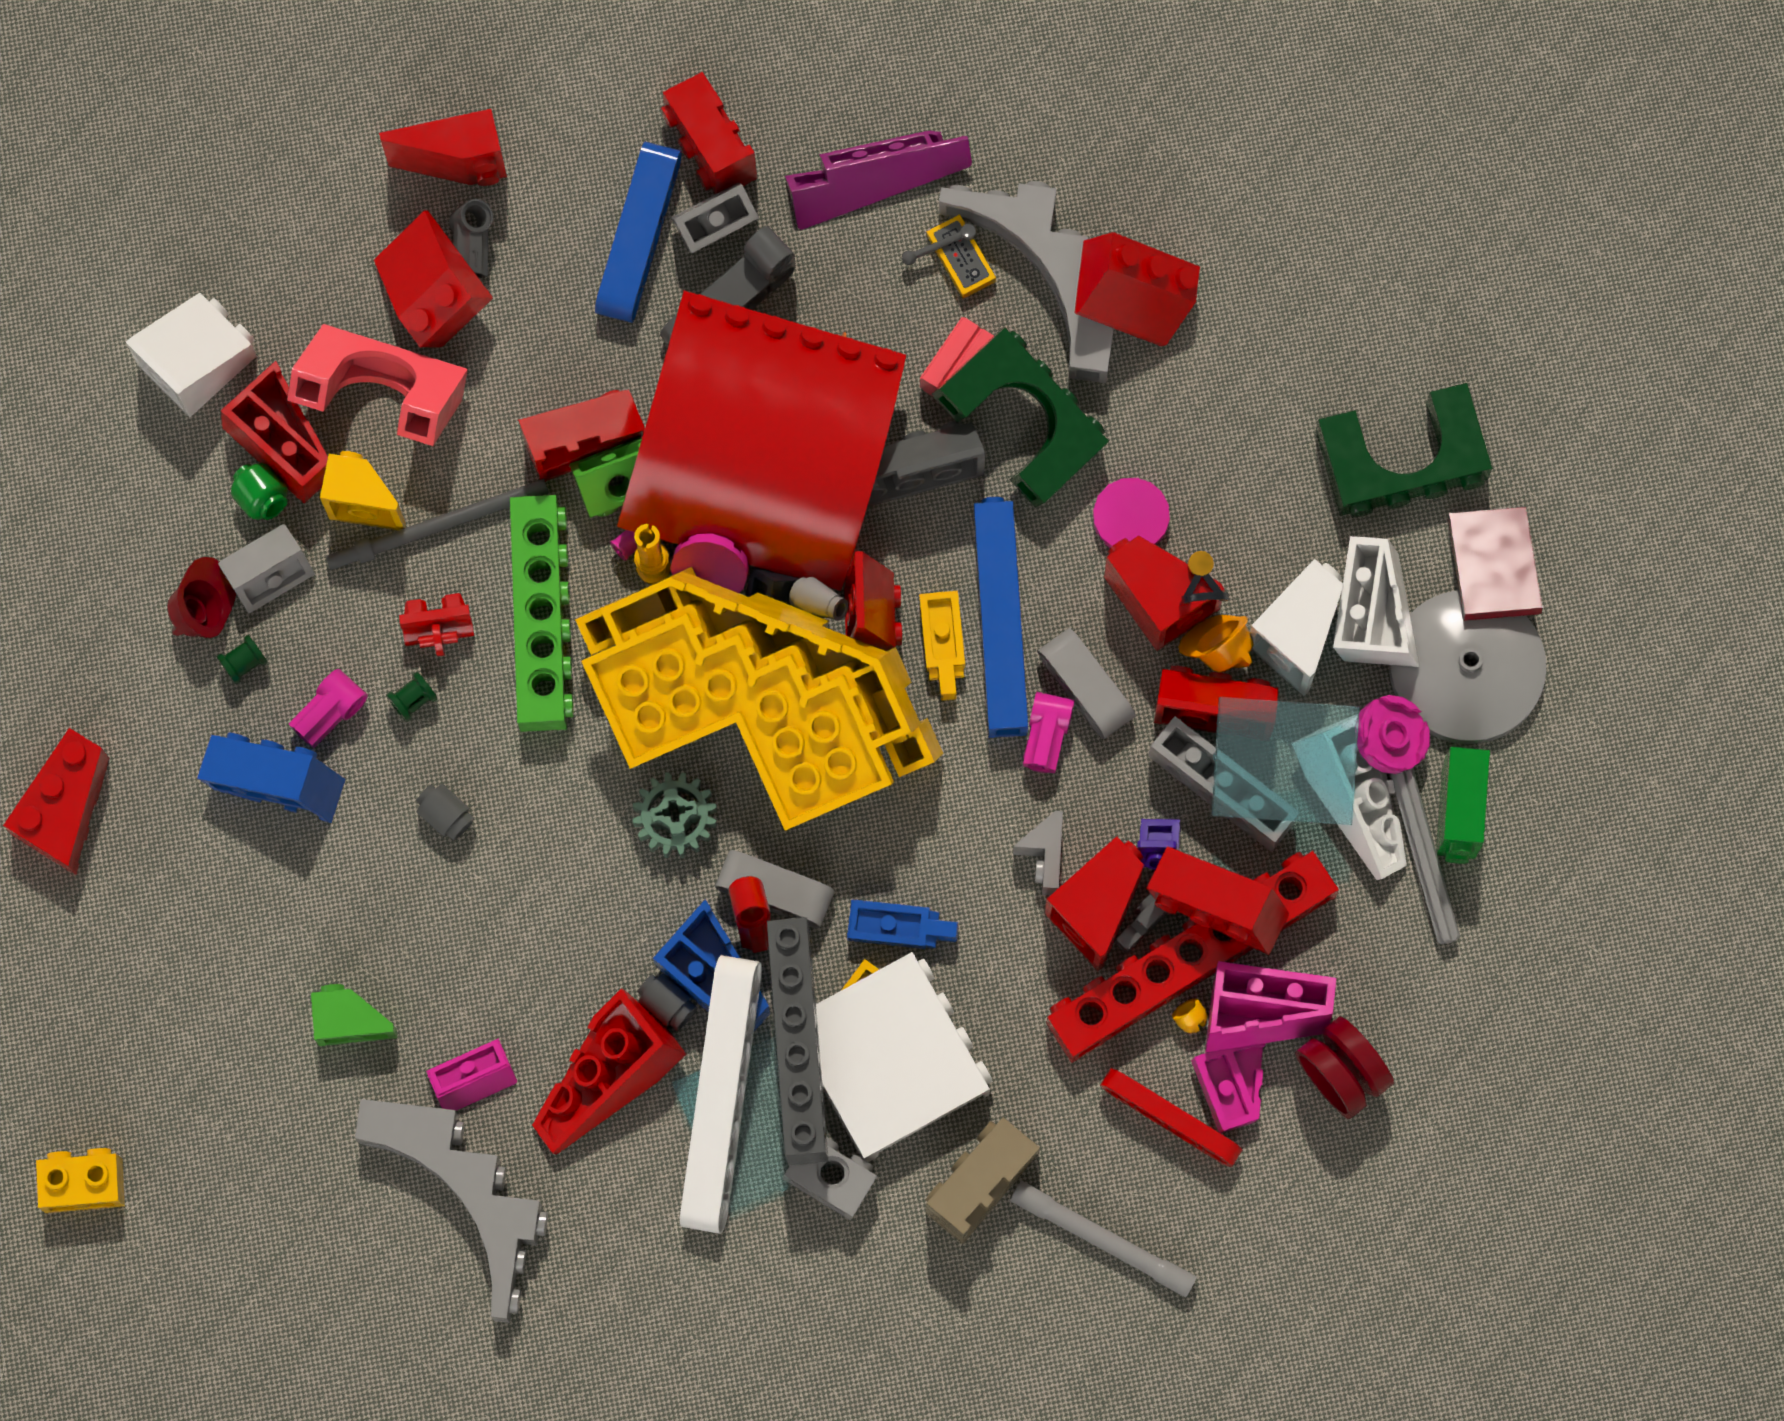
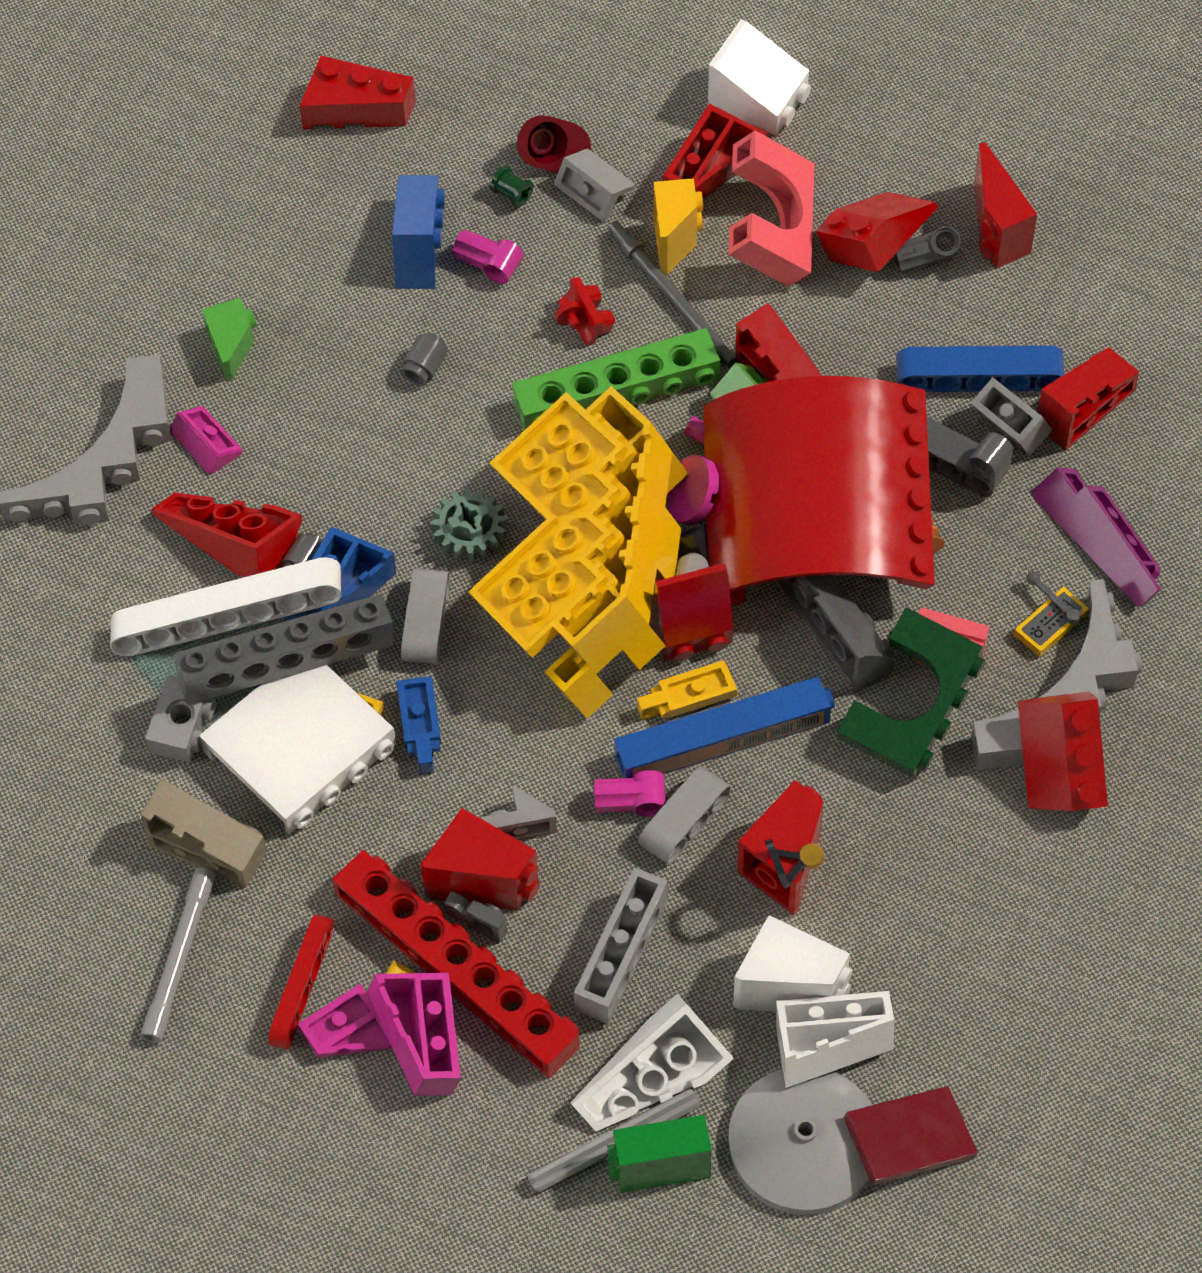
camera: 75 degrees right, 15 degrees down
(80, 1181) = (49, 190): yellow brick -> none
(259, 491) = (654, 158): green head -> none
(411, 696) = (515, 310): dark green bush -> none
(651, 556) = (687, 429): yellow pin -> none
(750, 912) = (397, 588): red piece -> none
(1129, 510) = (856, 817): dark pink tile -> none
(1155, 837) = (551, 908): dark purple bracket -> none
(1196, 697) = (698, 922): red slope -> none
(1218, 899) = (501, 955): red wedge -> none
(1219, 642) = (750, 909): light orange piece -> none
(1285, 761) = (649, 977): clear light blue piece -> none
(1344, 1067) = (378, 1107): dark red wheel -> none
(1364, 485) = (1000, 1078): dark green arch -> none
(1392, 734) = (711, 1078): dark pink tile -> none

